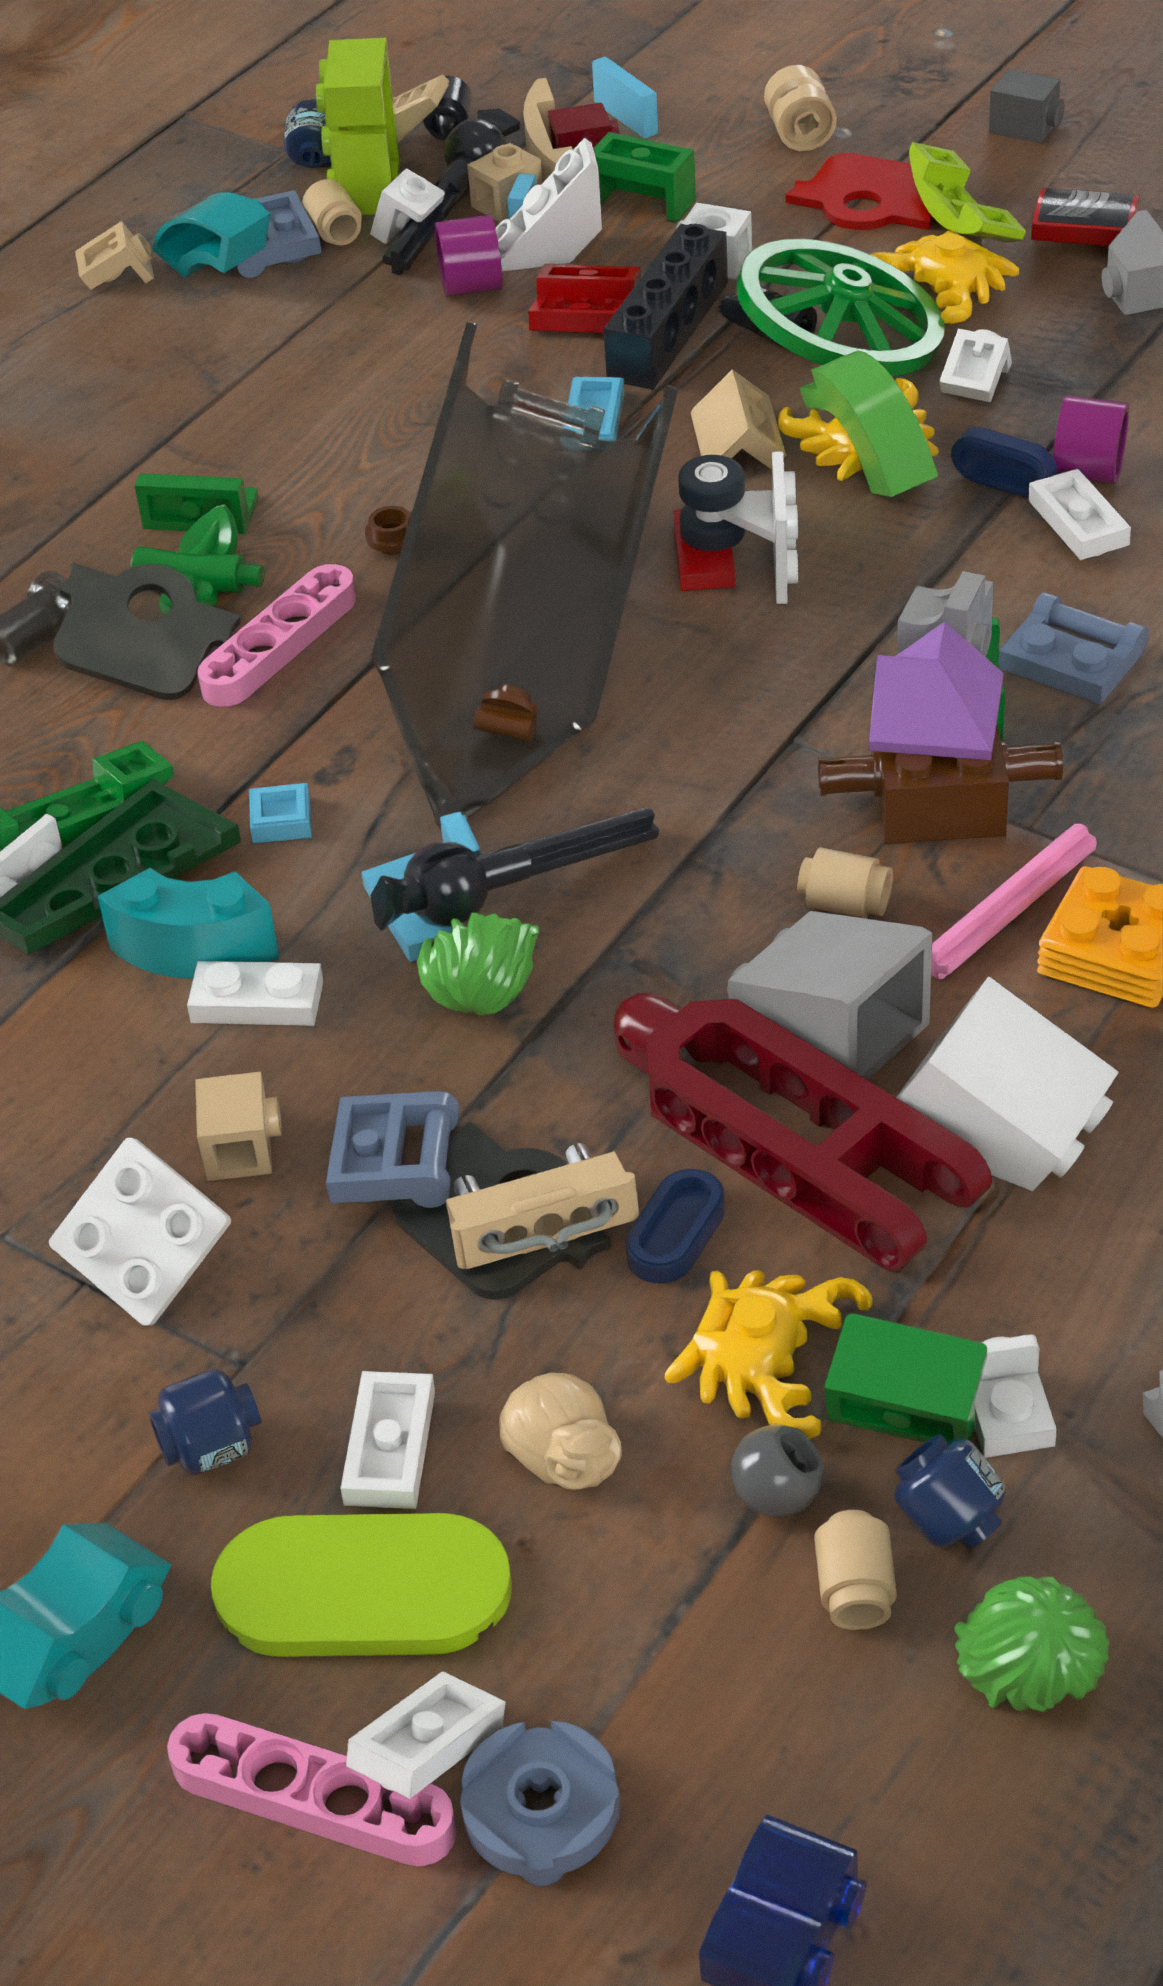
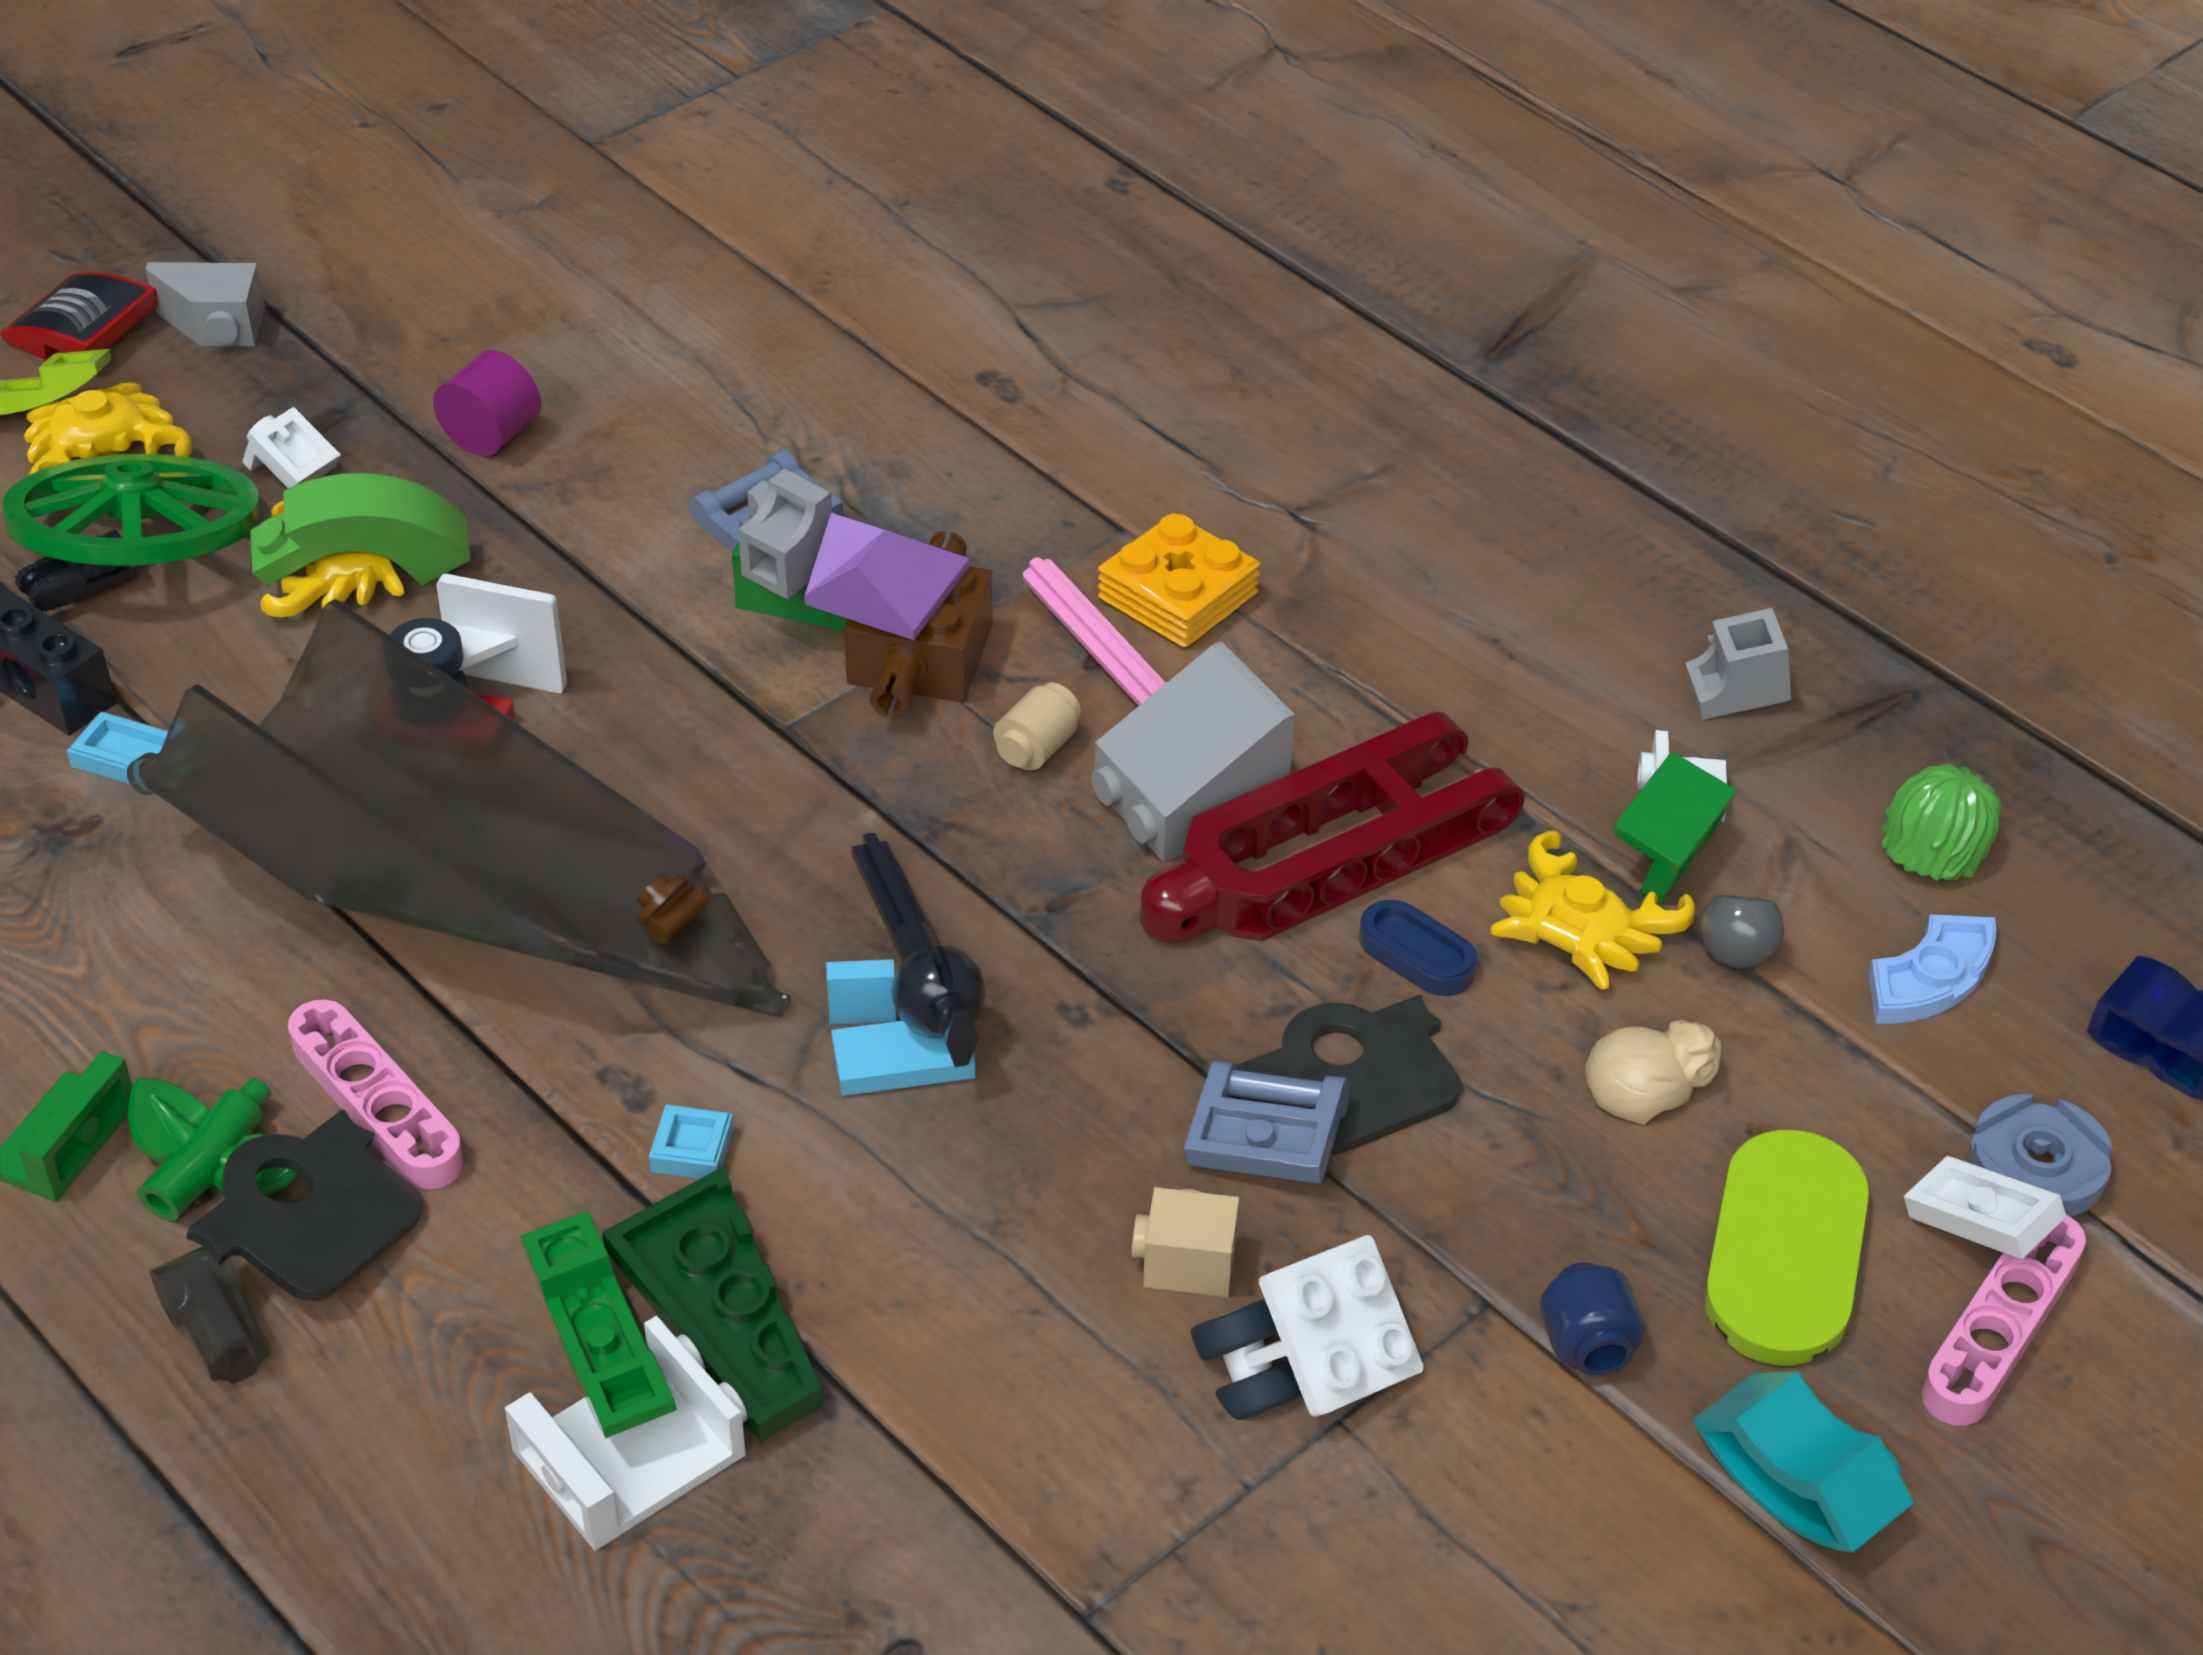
camera: 80 degrees left, 0 degrees up
(176, 923) = (871, 1238): teal brick -> none
(255, 993) = (976, 1208): white plate -> none
(387, 529) = (248, 958): reddish brown plate -> none
(388, 1440) = (1633, 1190): white plate -> none
(479, 964) = (1050, 998): bright green hair -> none
(540, 1208) = (1395, 1021): tan piece -> none
(737, 418) = (247, 647): tan panel -> none
(811, 1681) = (1936, 972): none -> light blue tile
(855, 1569) = (1845, 909): tan brick -> none
(950, 1492) = (1790, 829): dark blue head -> none
(1001, 460) = (472, 469): dark blue tile -> none
(1012, 1087) = (1355, 681): white slope -> none
(1079, 514) = (577, 449): white plate -> none

